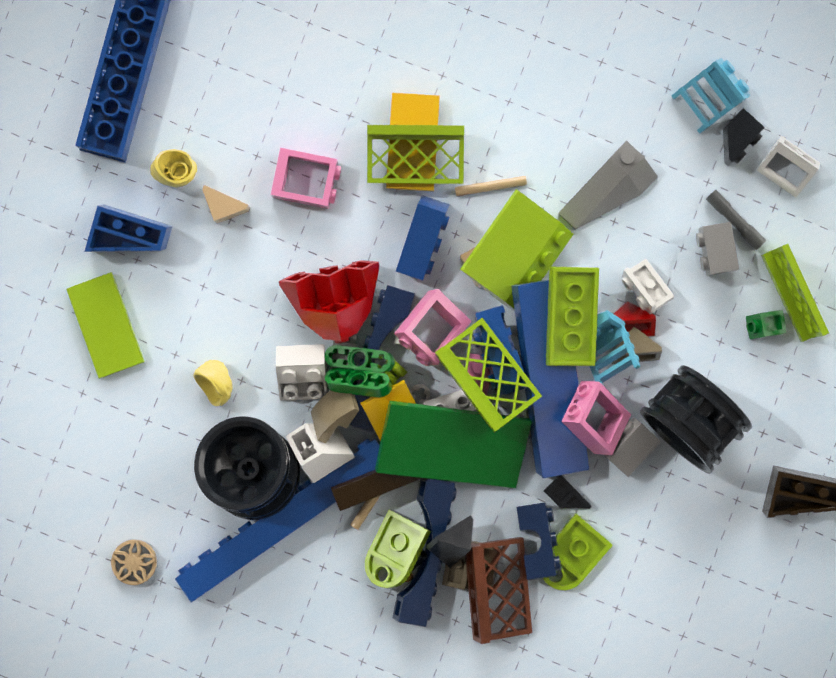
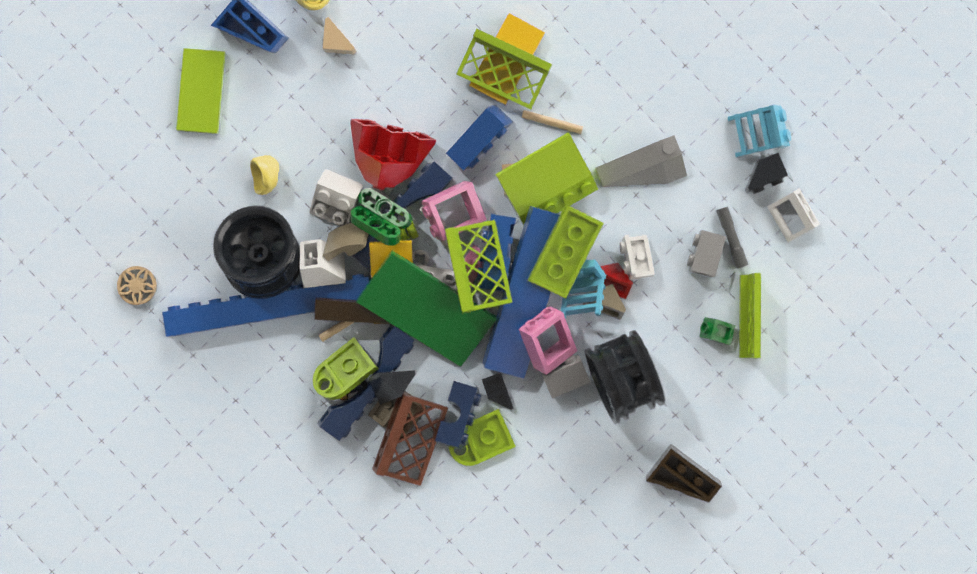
camera: 30 degrees right, 0 degrees up
(281, 175) = (392, 36): bright pink window -> none

